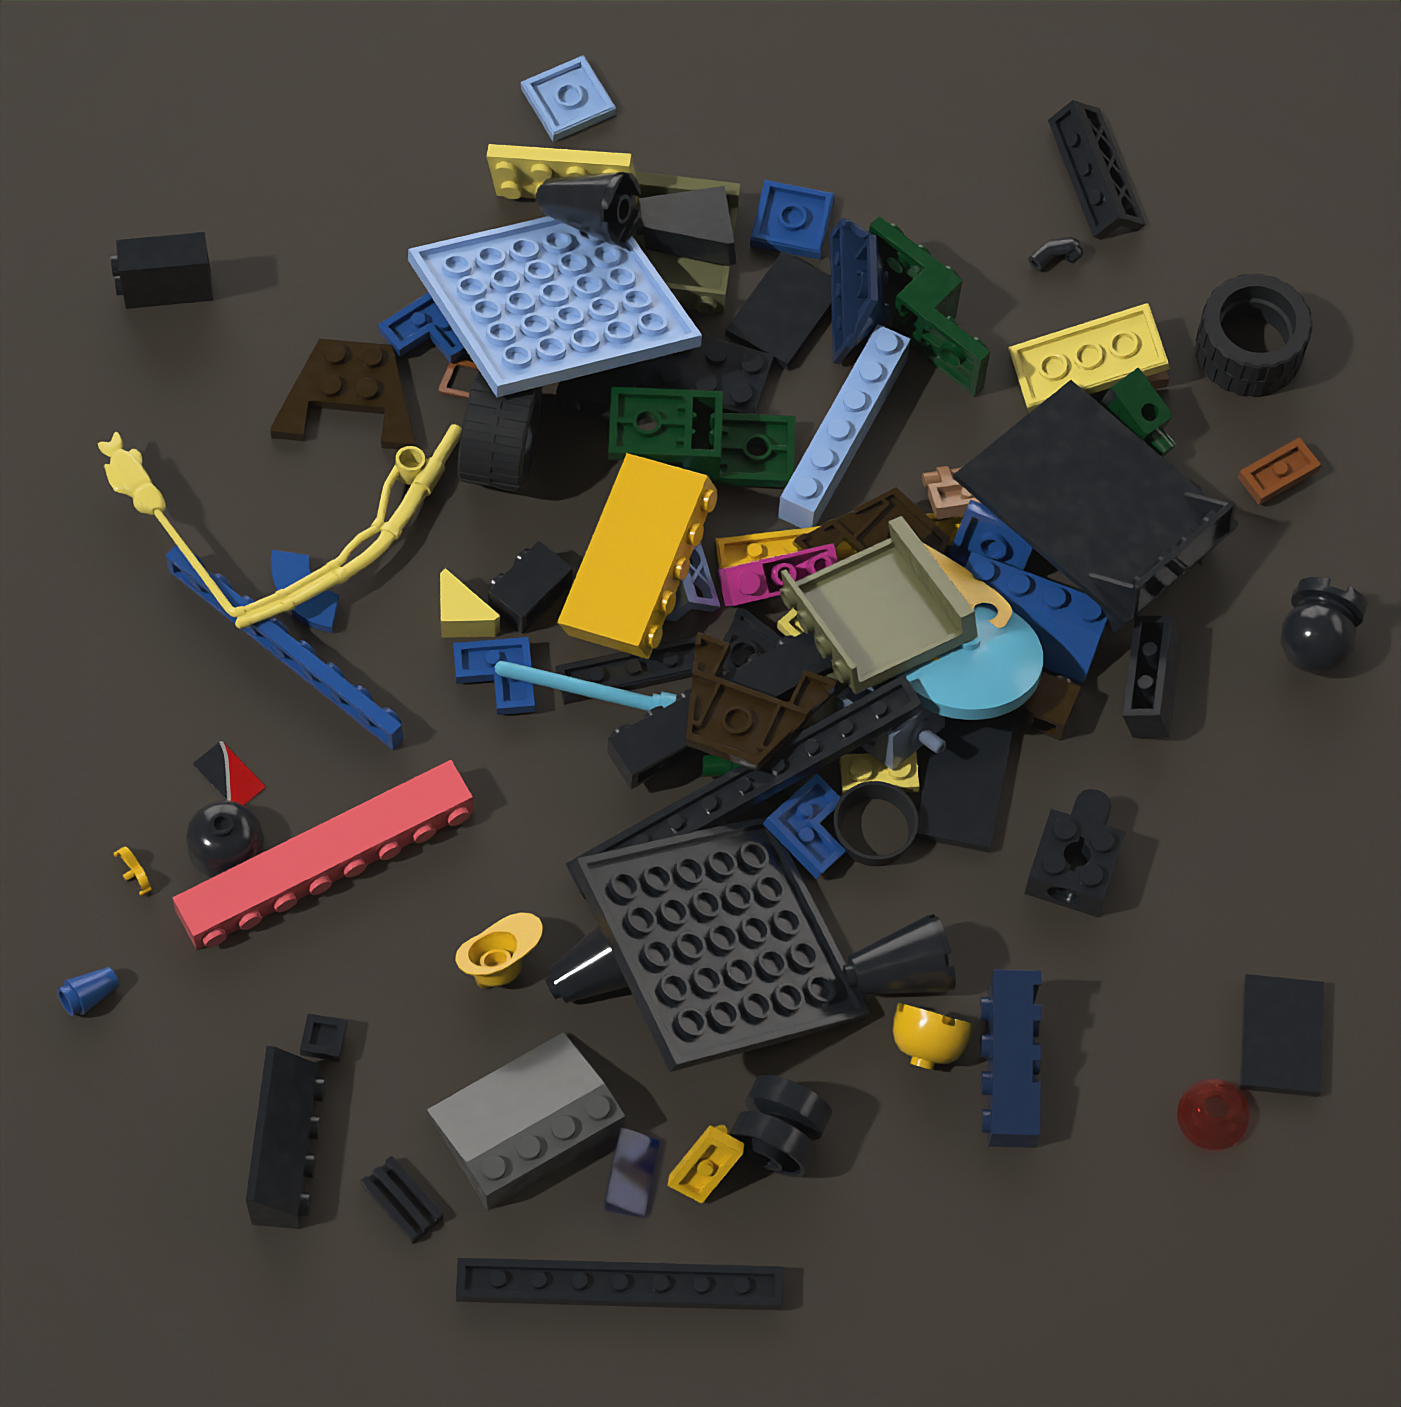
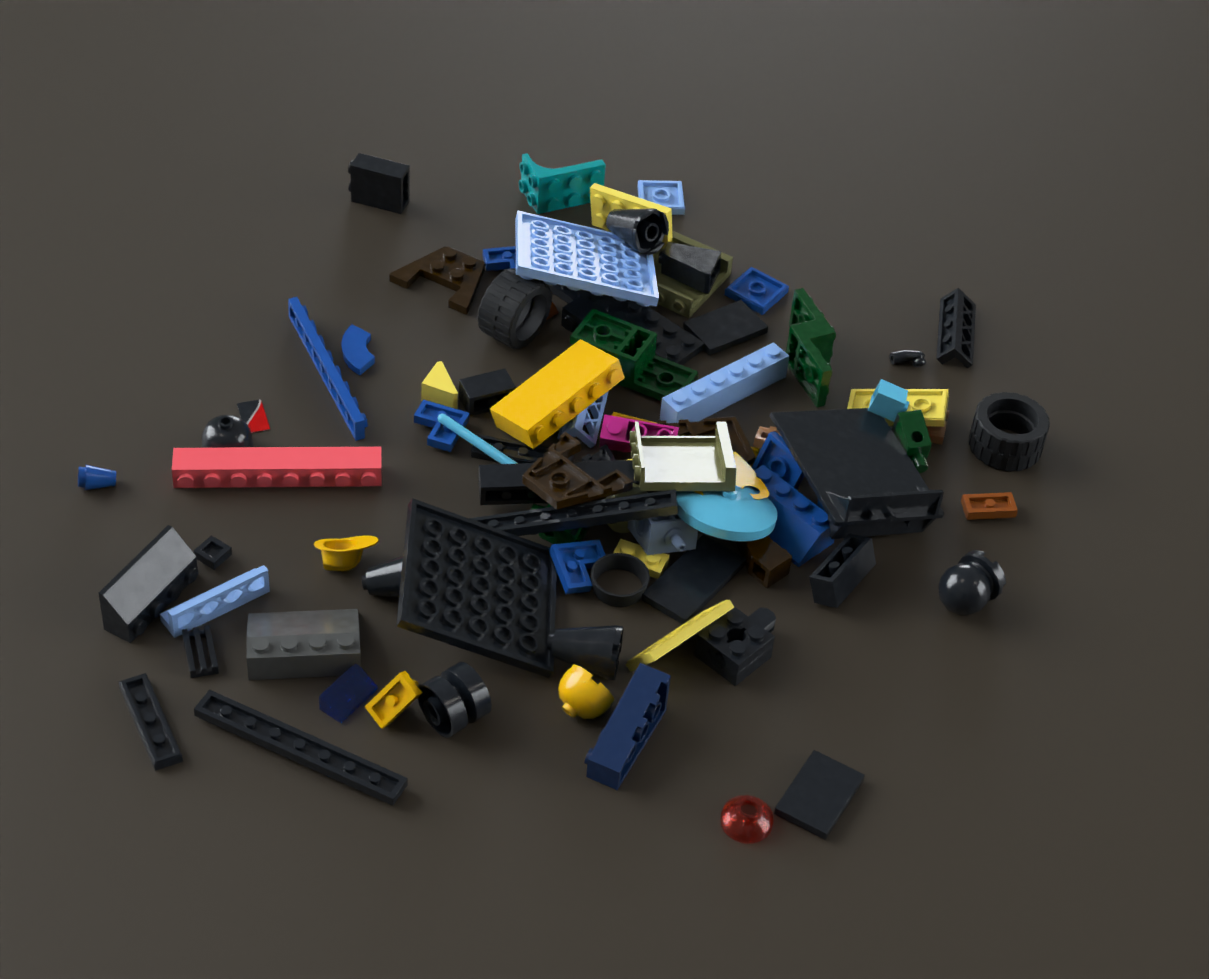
camera: 25 degrees right, 20 degrees down
(130, 478) = (456, 315): light yellow piece -> none
(136, 869) = (167, 439): yellow piece -> none
(373, 1112) = (216, 601): none -> light blue fence
(405, 1337) = (150, 722): none -> black tile
(415, 169) = (559, 187): none -> teal bracket
(856, 287) = (775, 324): dark blue wedge -> none
(1004, 885) = (680, 634): none -> light yellow tile
(1085, 367) = (888, 400): none -> medium azure brick

